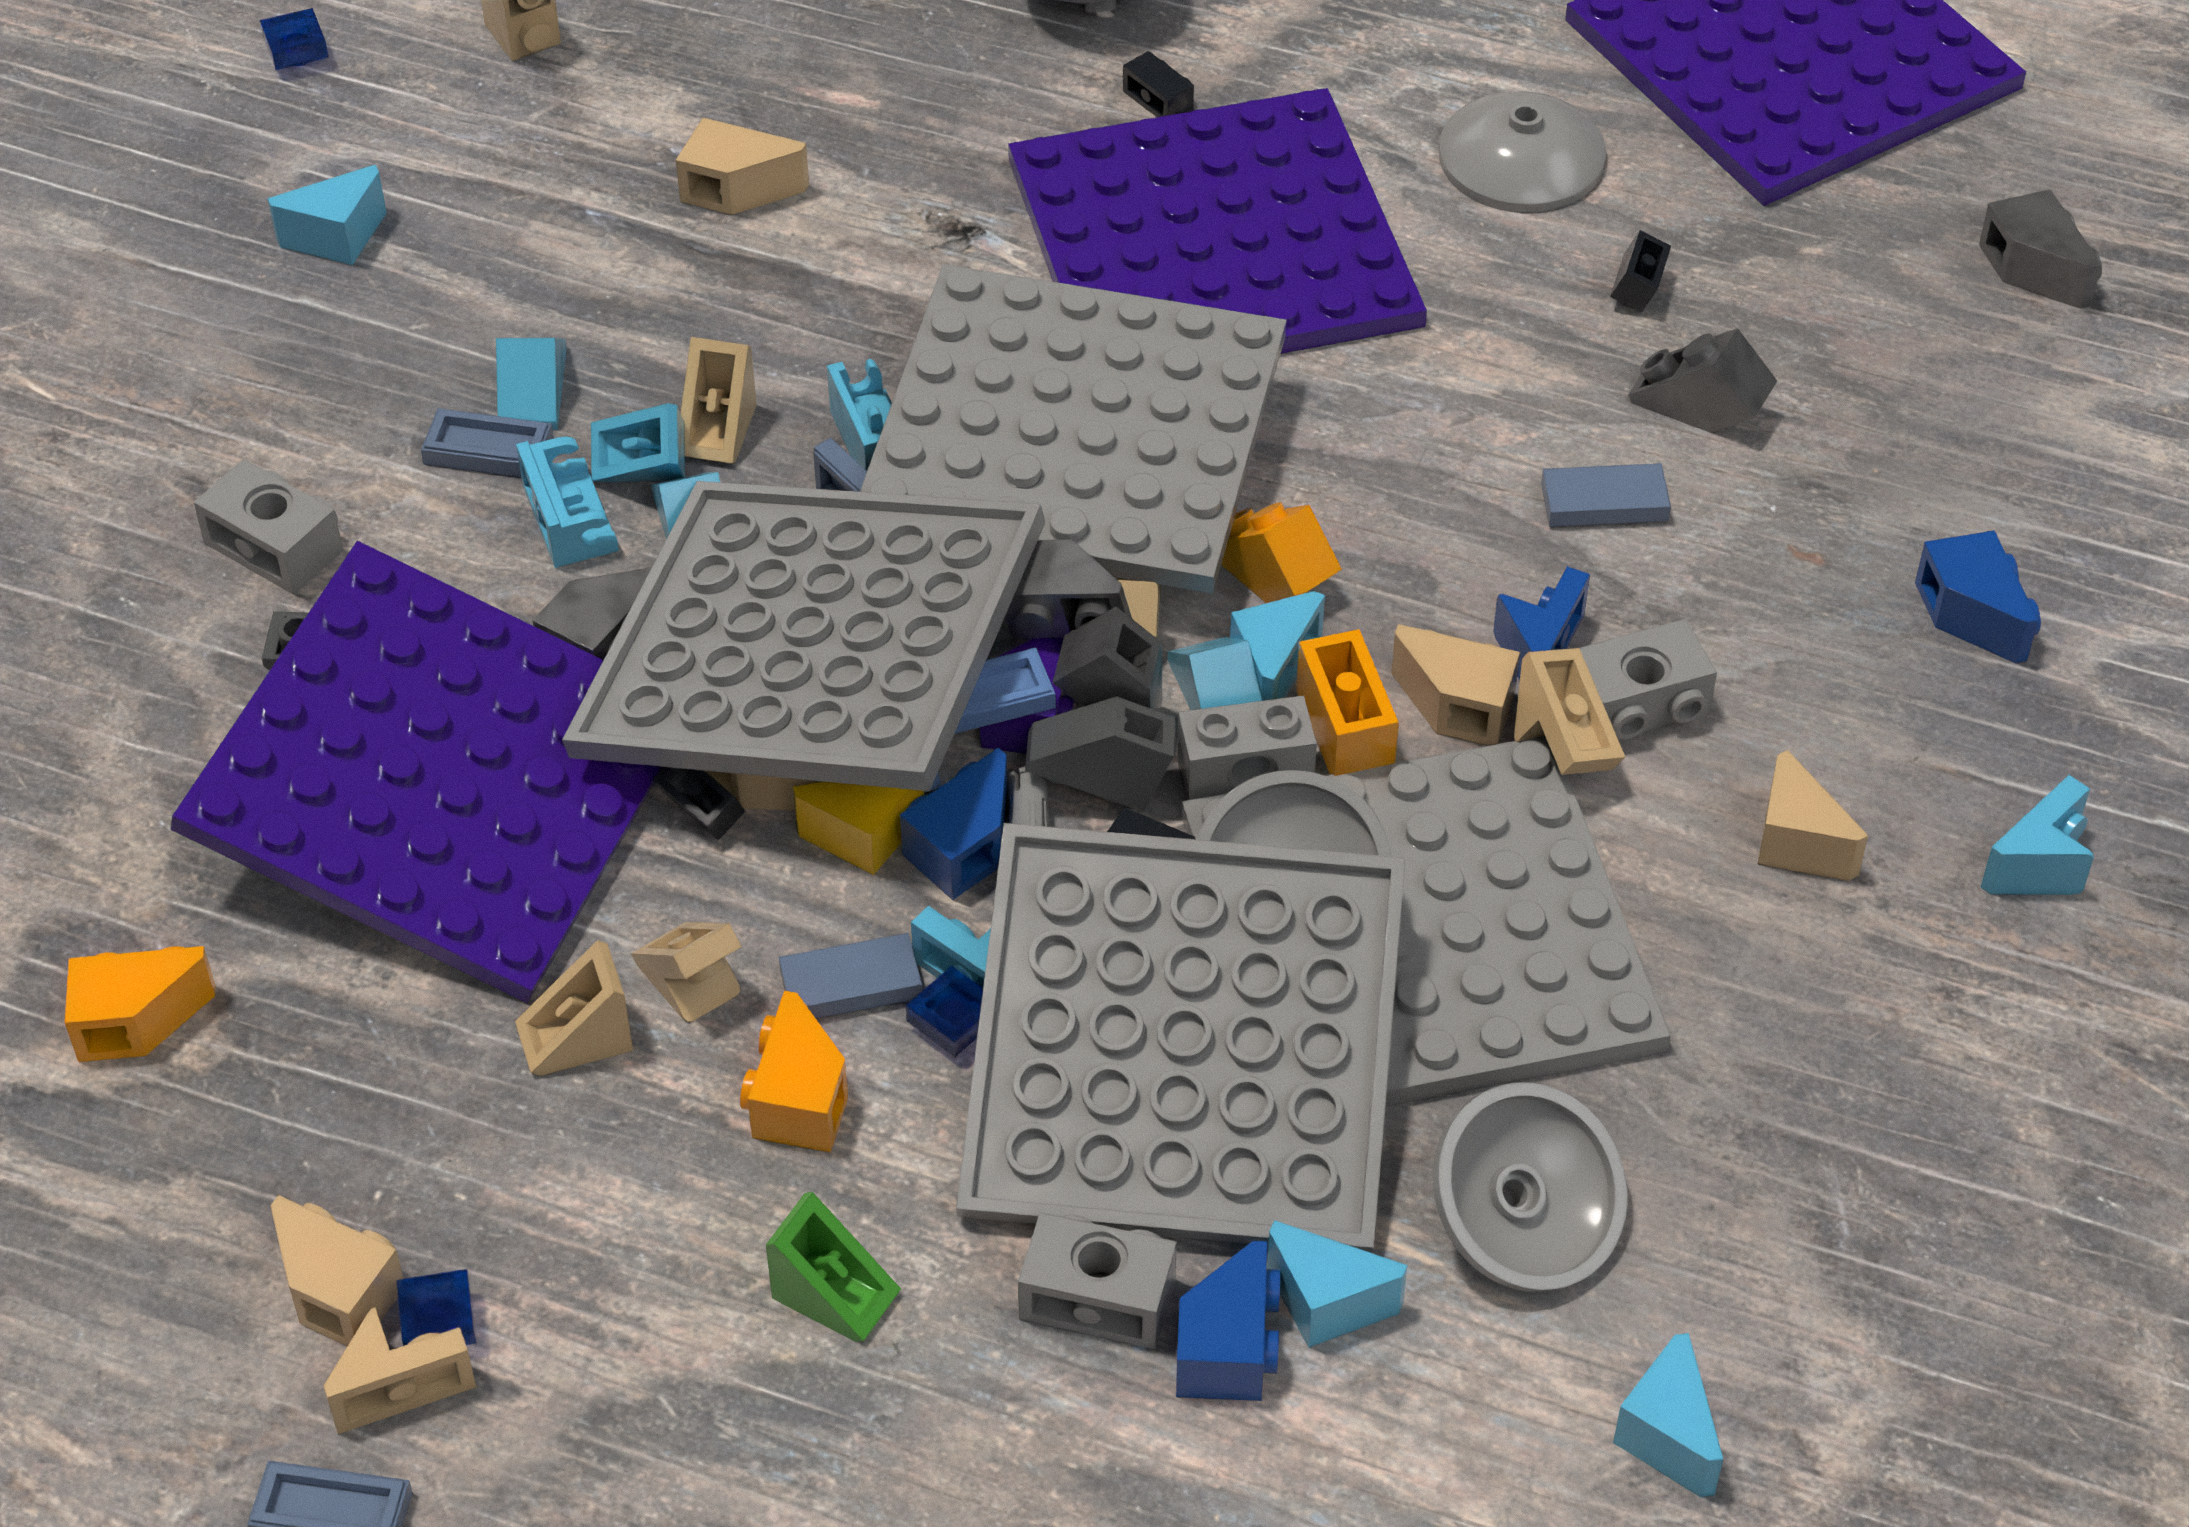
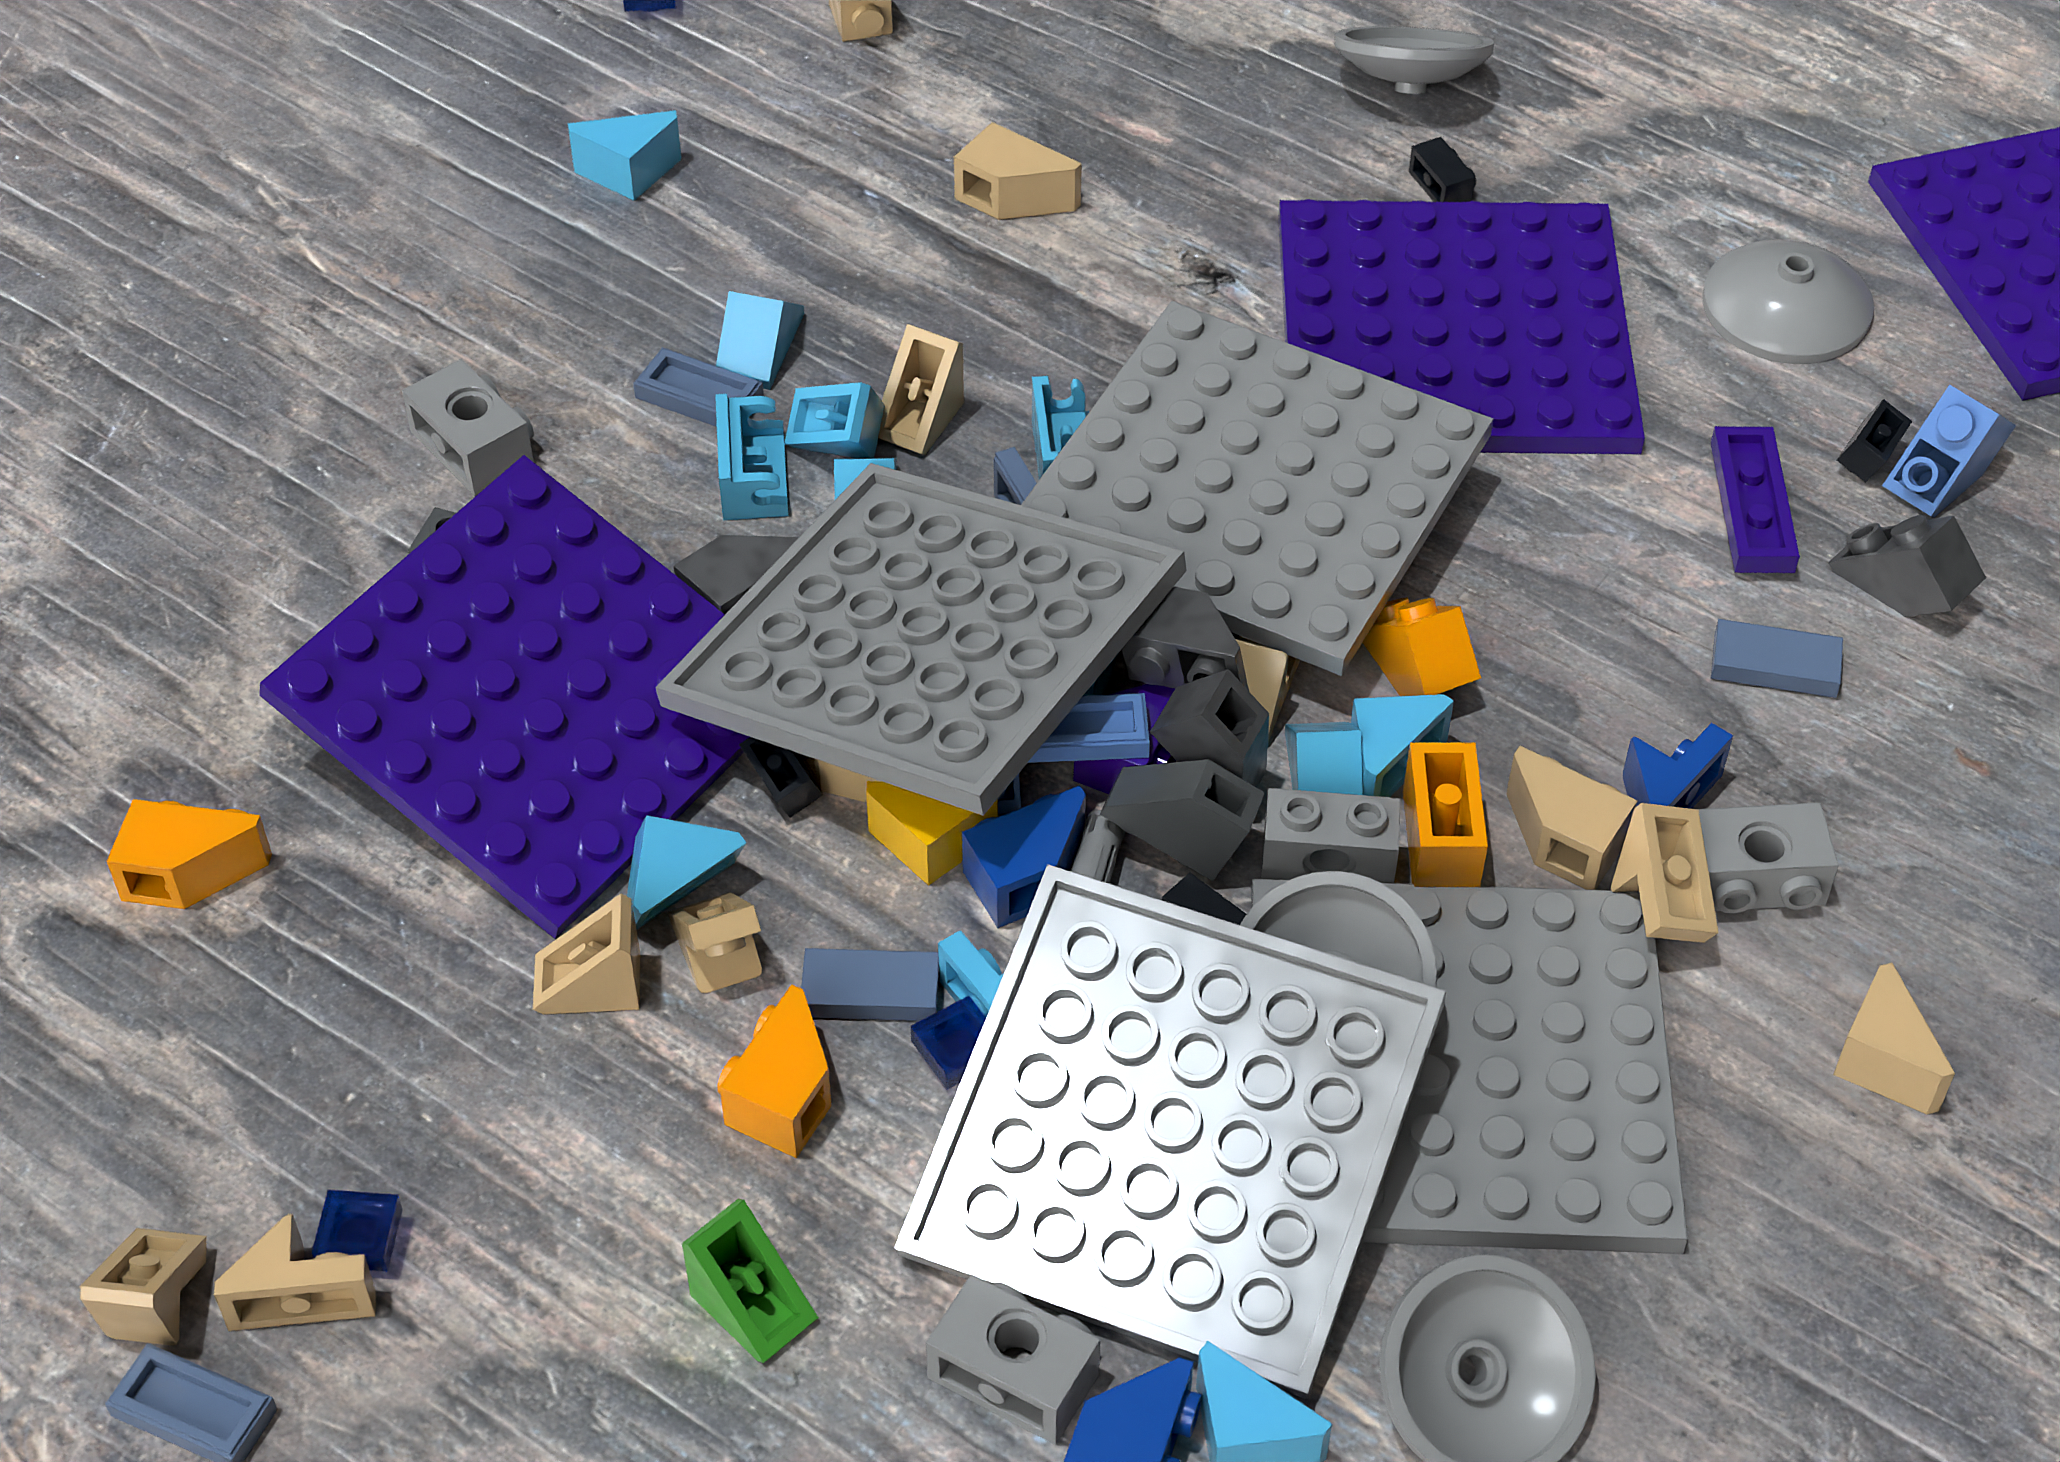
camera: 15 degrees right, 0 degrees up
(249, 1410) = (140, 1285): none -> tan slope
(334, 1269) = (271, 1164): tan slope -> none
(626, 899) = (674, 861): none -> medium azure slope
(1545, 349) = (1754, 500): none -> dark purple plate
(1711, 269) = (1948, 452): none -> medium blue slope

